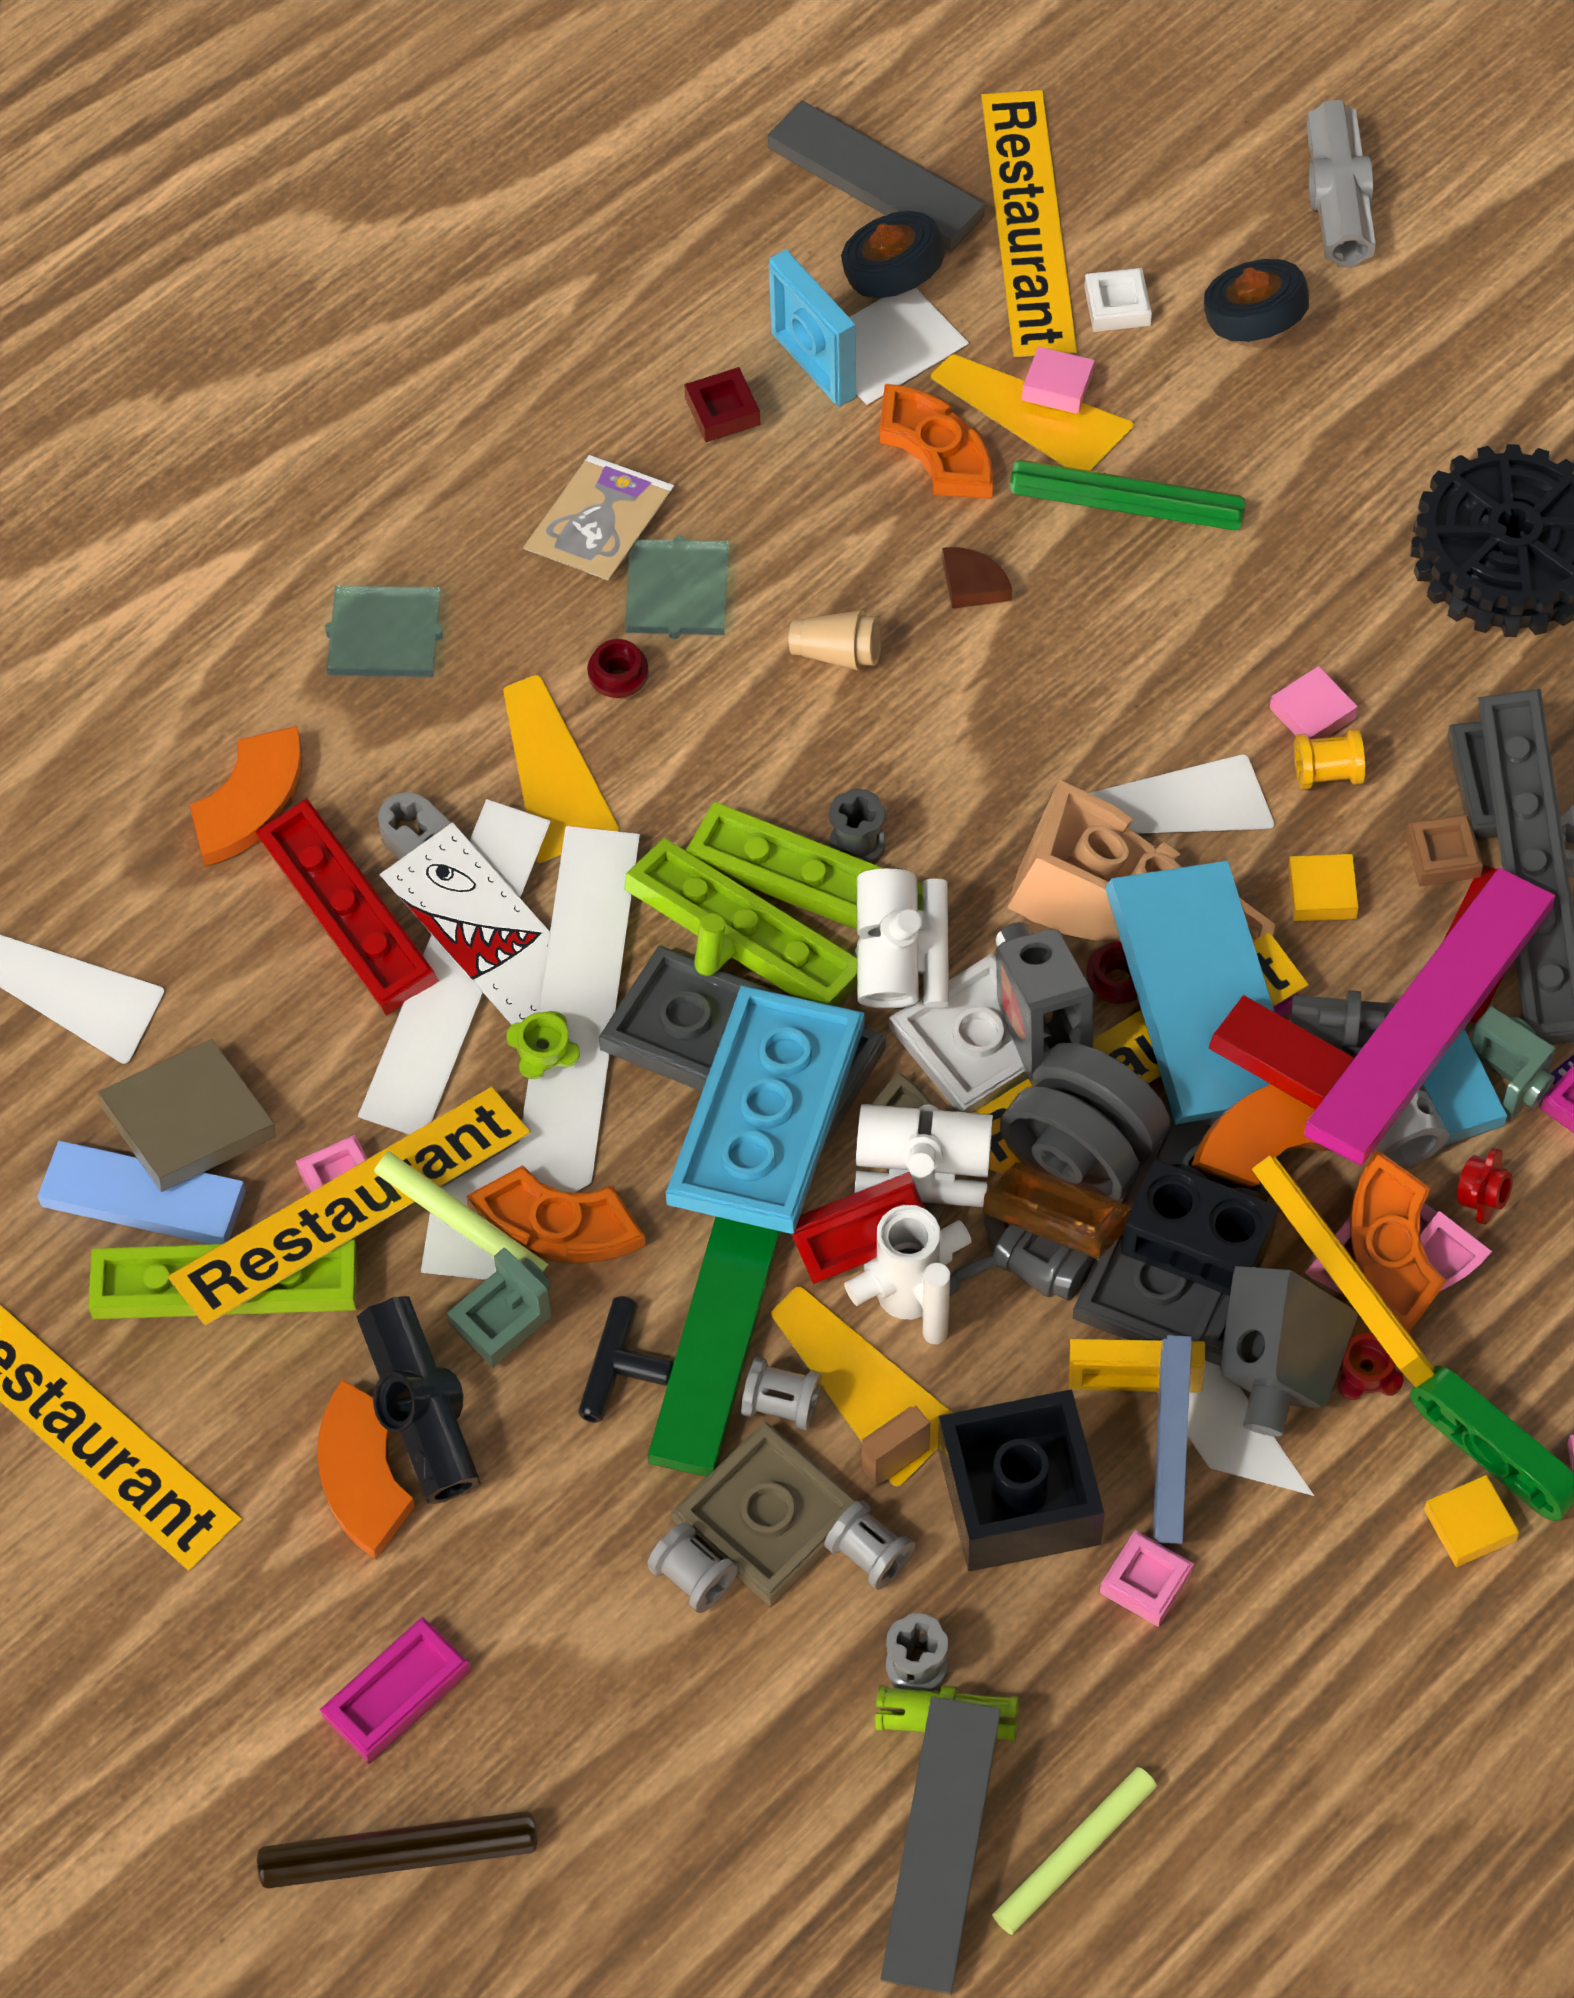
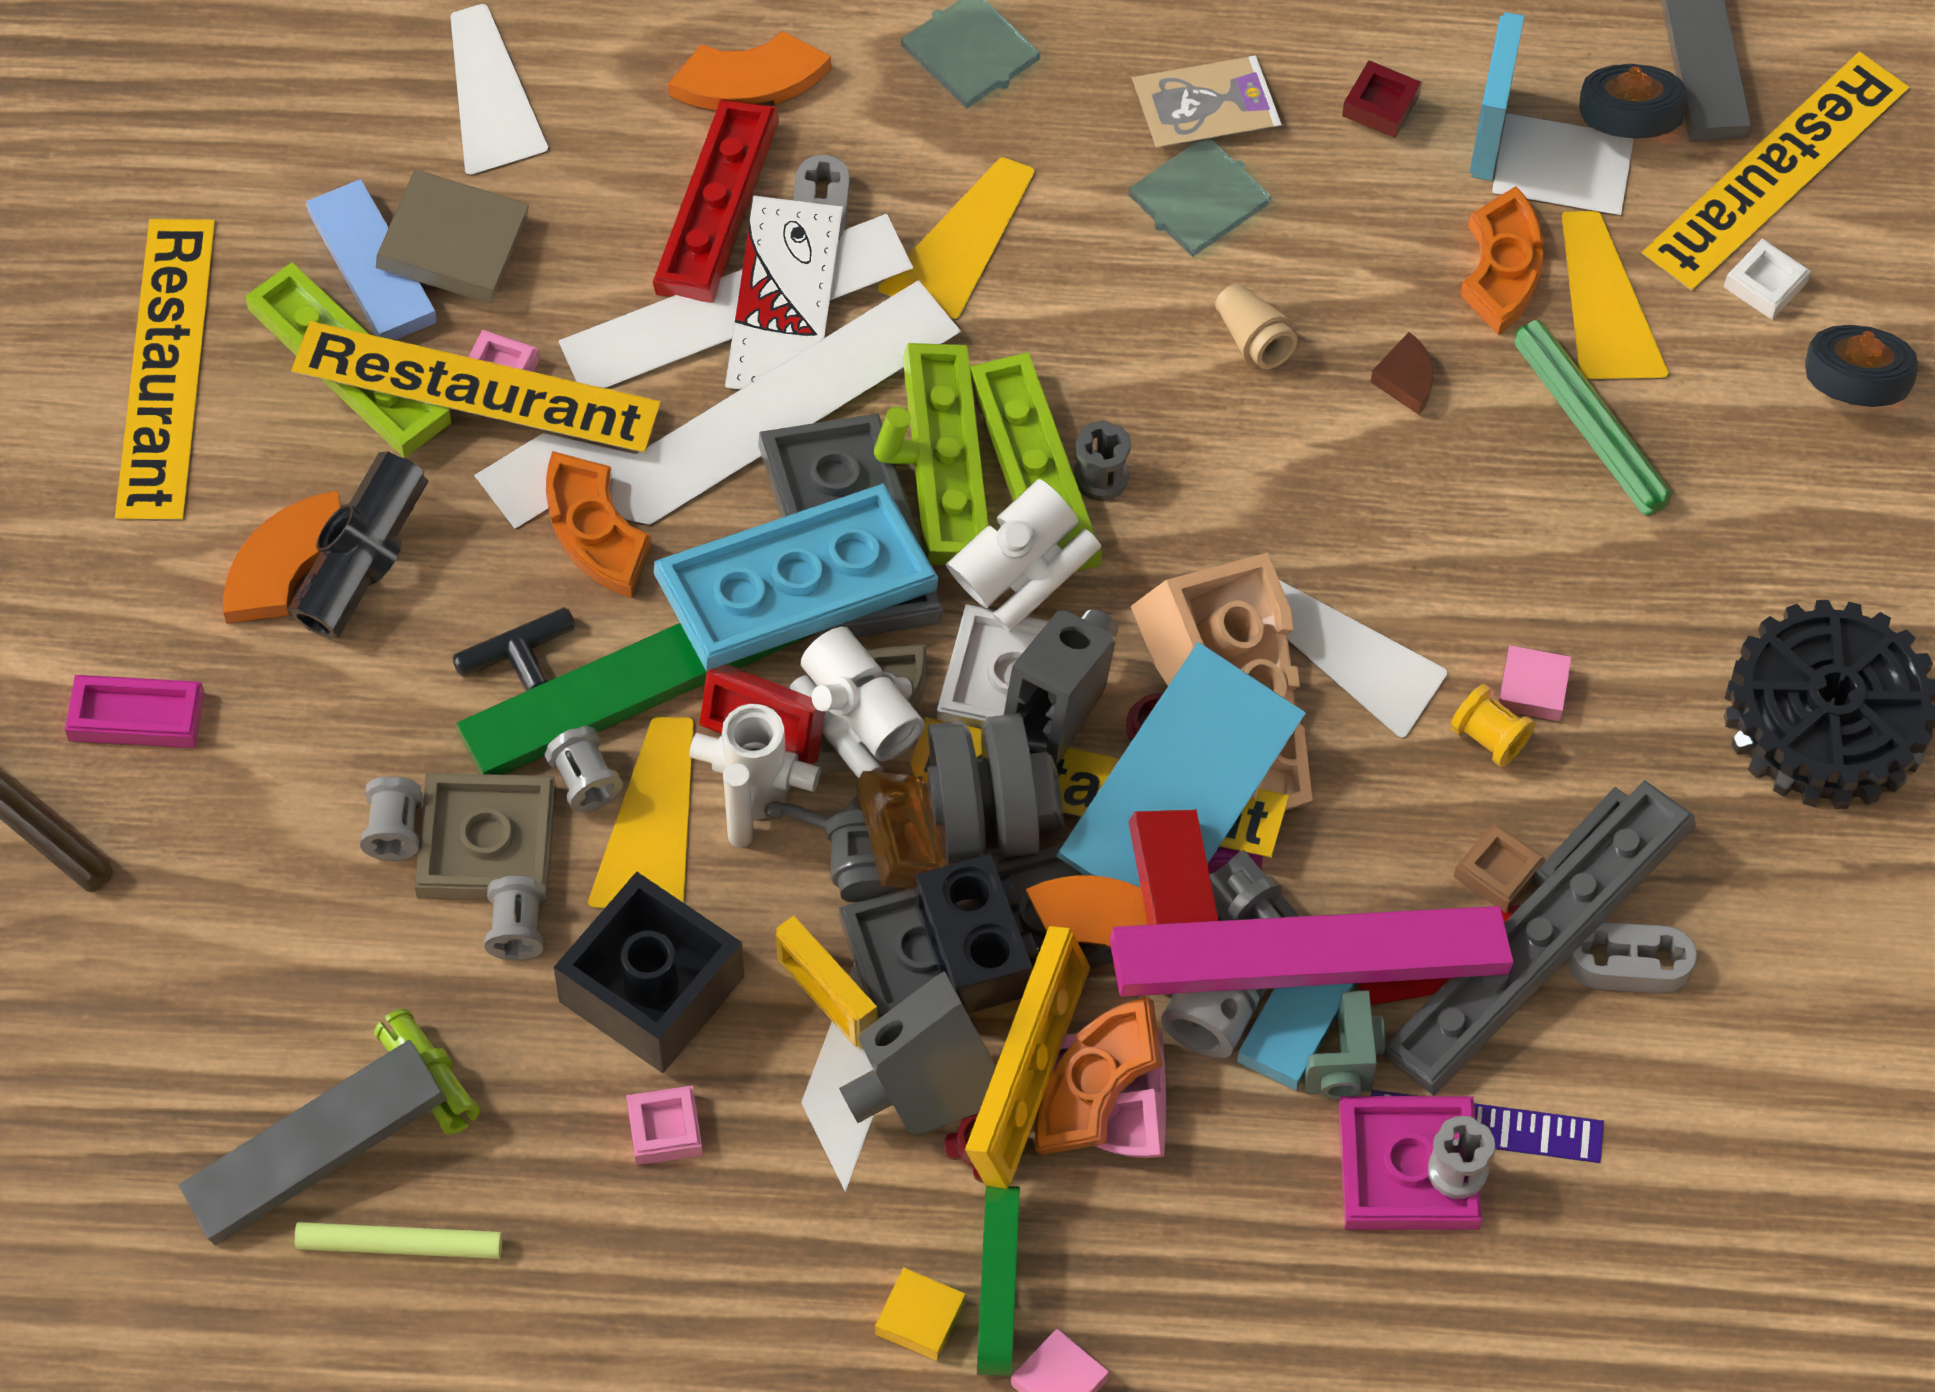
camera: 45 degrees right, 0 degrees up
(450, 1209) = (529, 461): yellowish green bar -> none
(503, 1308) = (483, 543): sand green bracket -> none
(538, 1027) = (721, 387): lime plate -> none
(617, 655) = (1085, 197): dark red plate -> none
(895, 1445) = (602, 869): medium nougat tile -> none
(901, 1643) = (450, 994): light grey bush -> none
(1058, 380) = (1645, 294): bright pink tile -> none
(1172, 1439) = (772, 1045): sand blue tile -> none
(1323, 887) = (1377, 808): yellow tile -> none
(1484, 1185) = (1218, 1109): red plate -> none

